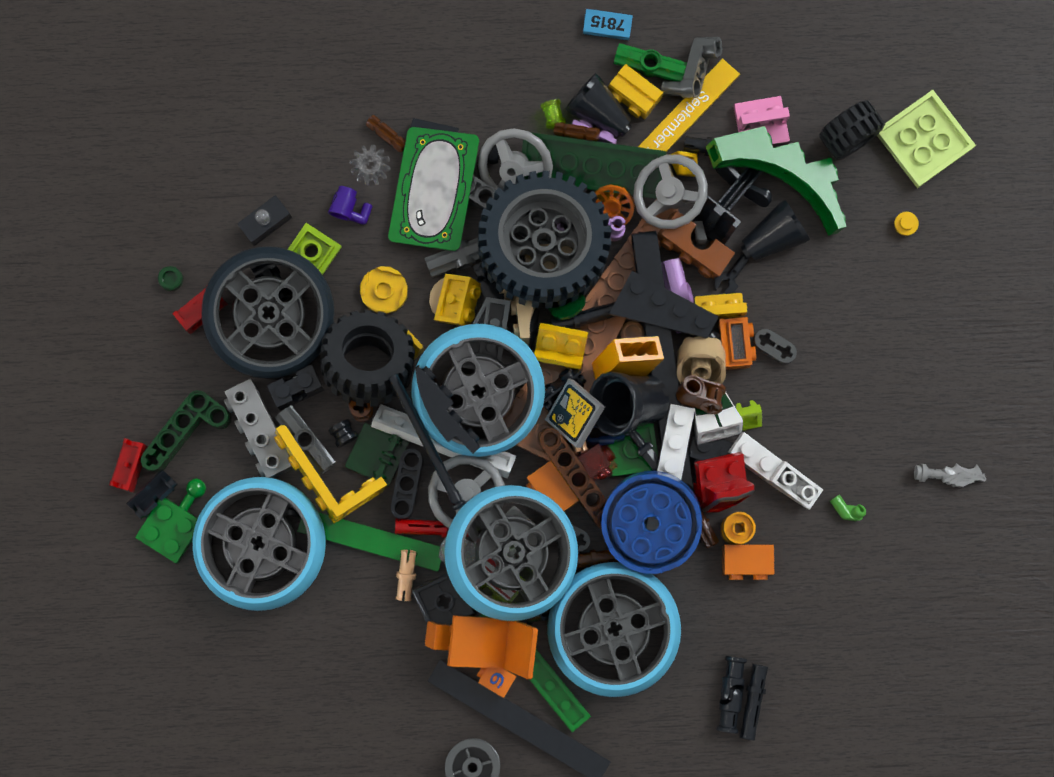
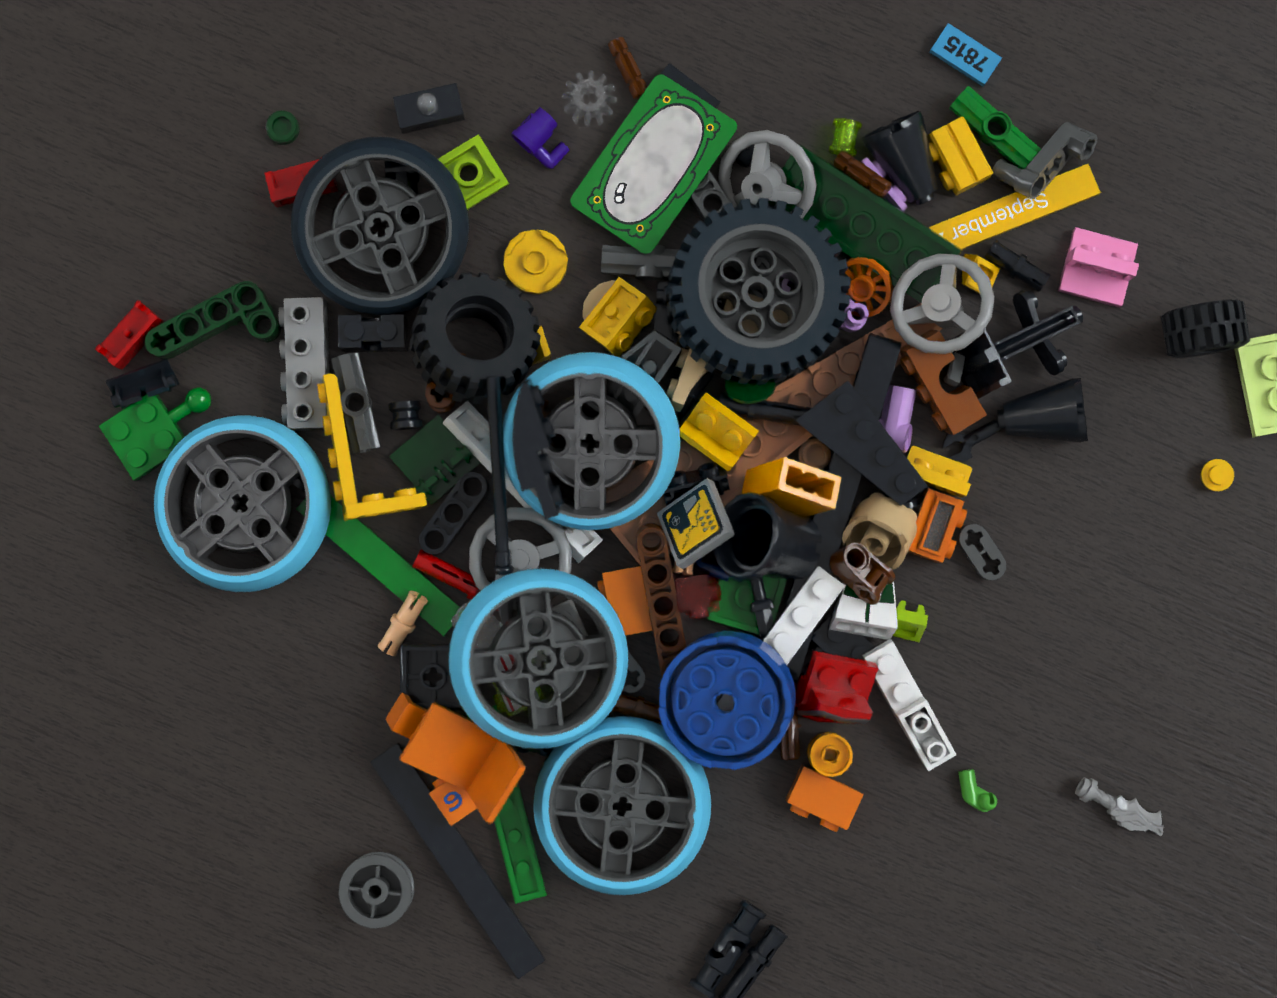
camera: 25 degrees right, 5 degrees up
(787, 162) = (1105, 332): arch -> none

